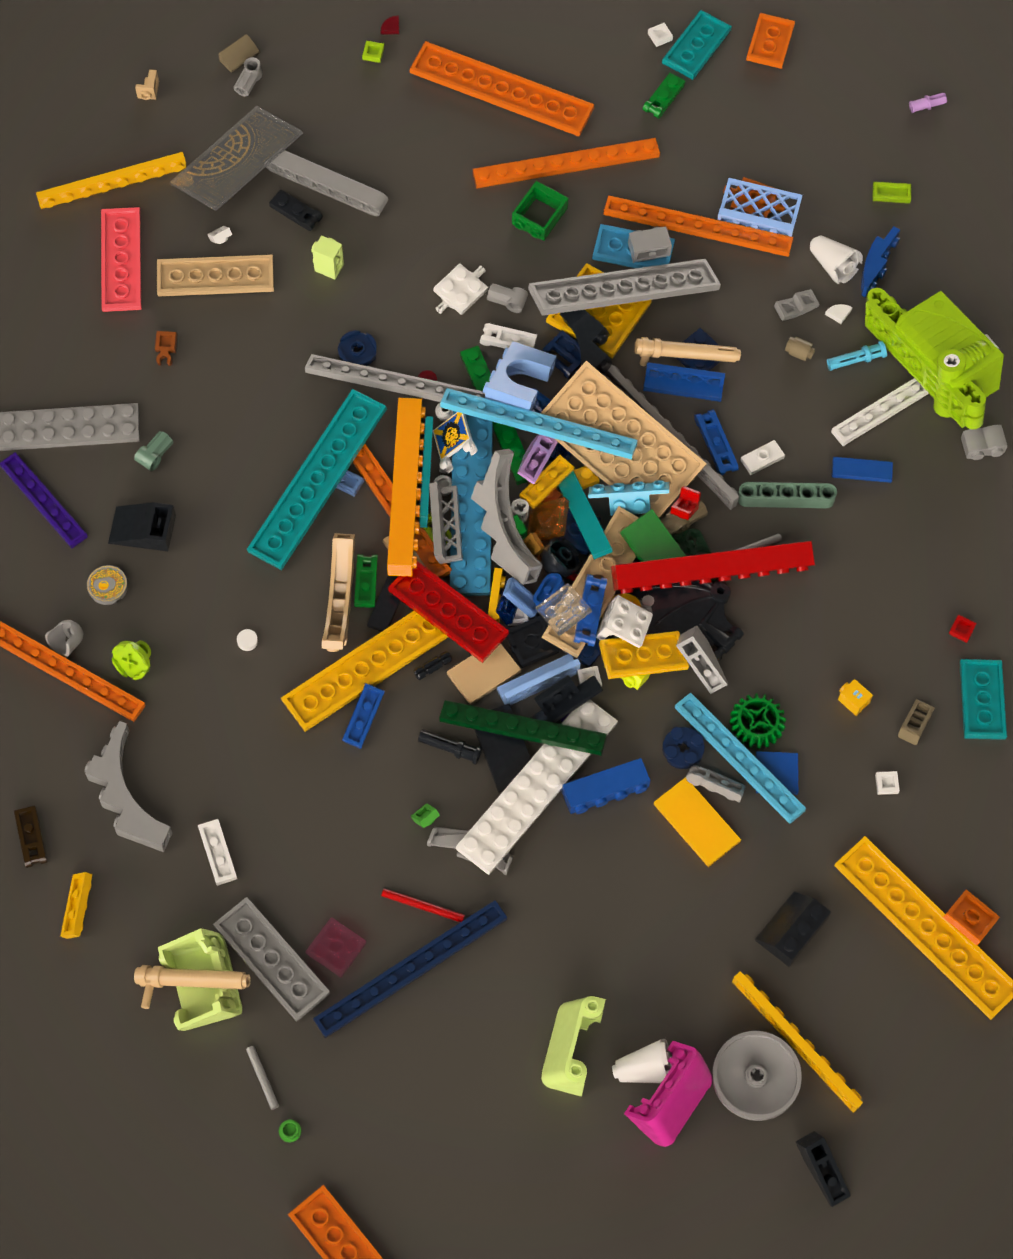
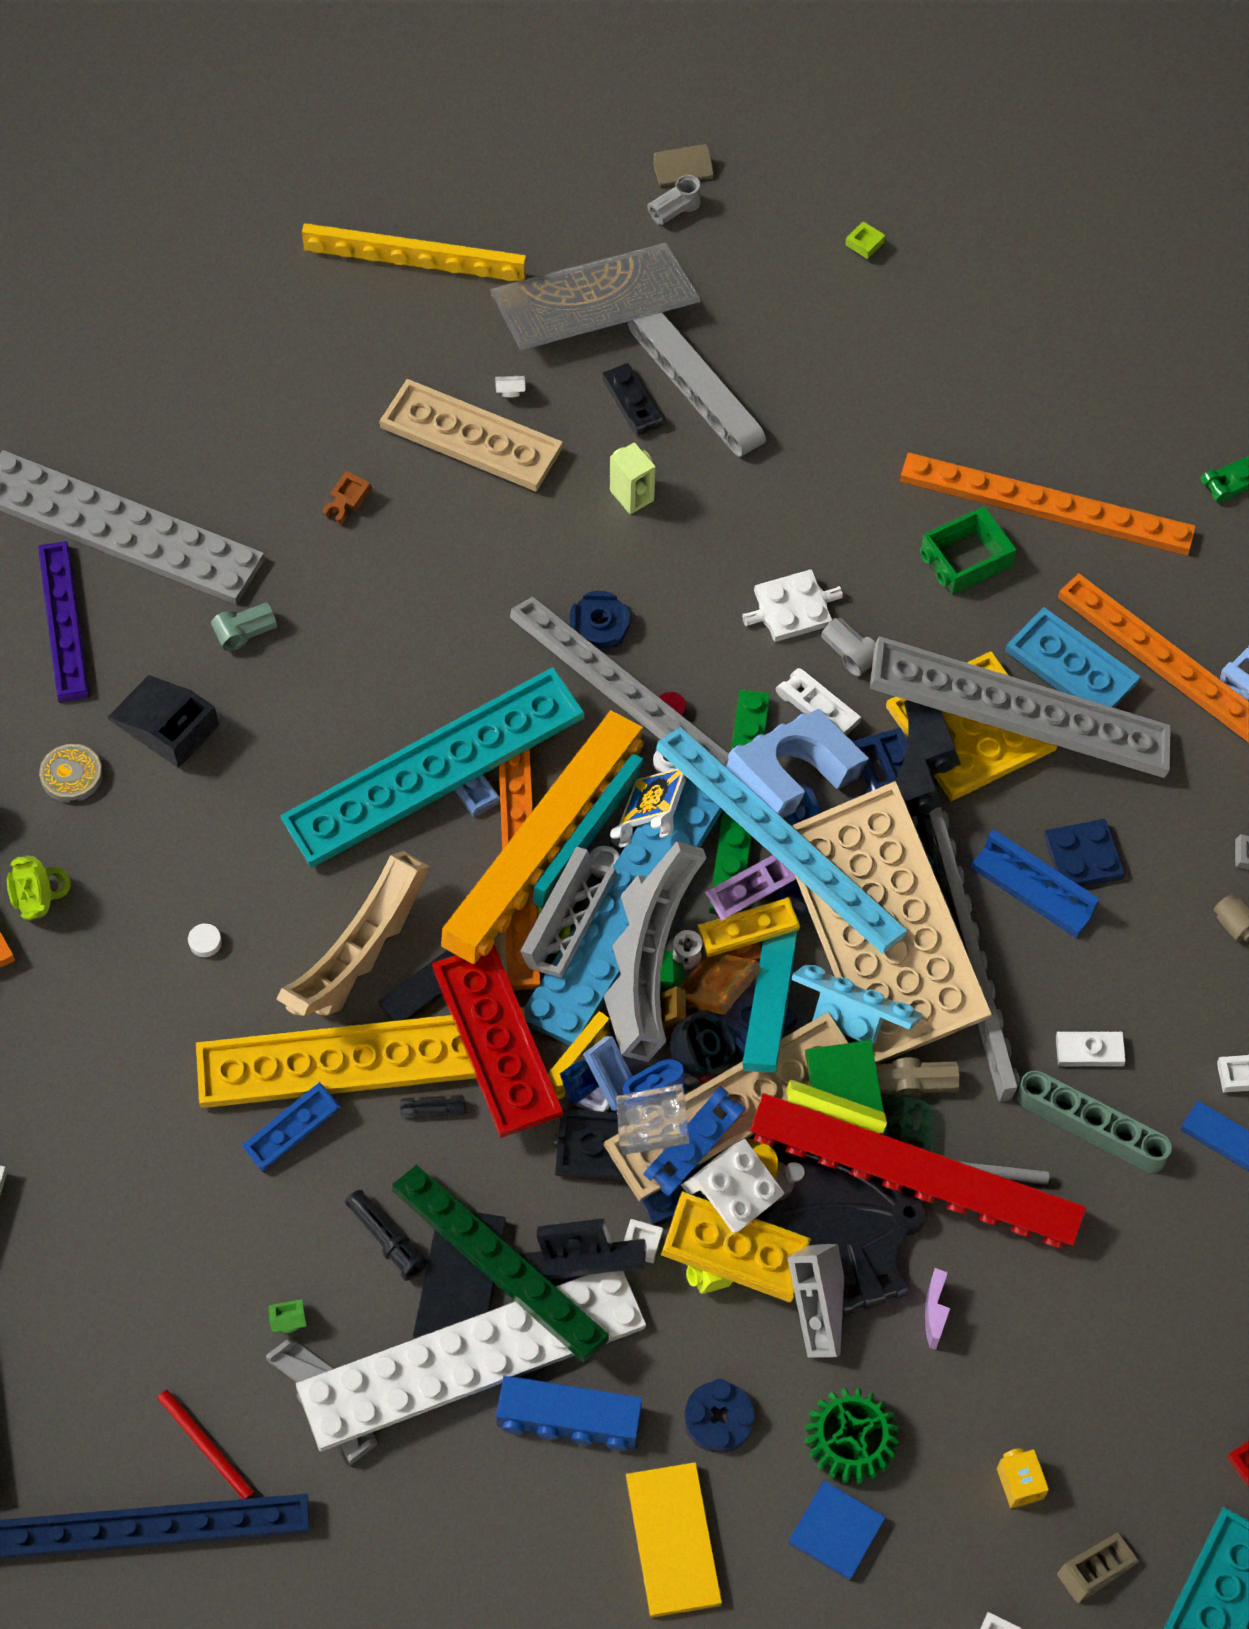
camera: 30 degrees right, 5 degrees down
(121, 259) = (361, 358): coral plate -> none
(150, 87) = (541, 157): tan bracket -> none
(336, 947) = (47, 1439): clear pink plate -> none
(366, 581) = (413, 940): green plate -> none
(390, 26) = (910, 218): dark red tile -> none
(479, 679) = (485, 1161): tan tile -> none
(502, 88) = (1016, 366): orange plate -> none
(538, 679) = (567, 1204): light blue fence -> none
(586, 477) = (810, 950): yellow plate -> none
(649, 244) = (1095, 666): light grey brick -> none
(654, 553) = (836, 1107): none -> neon yellow tile
(656, 347) = (1018, 815): tan cylinder -> none
(686, 504) = (929, 1059): red bracket -> none
(715, 783) = (734, 1496): light grey hinge -> none
(716, 442) = (1033, 993): blue plate -> none
(740, 758) = (792, 1480): medium azure plate -> none
(763, 637) = (935, 1313): none -> lavender slope

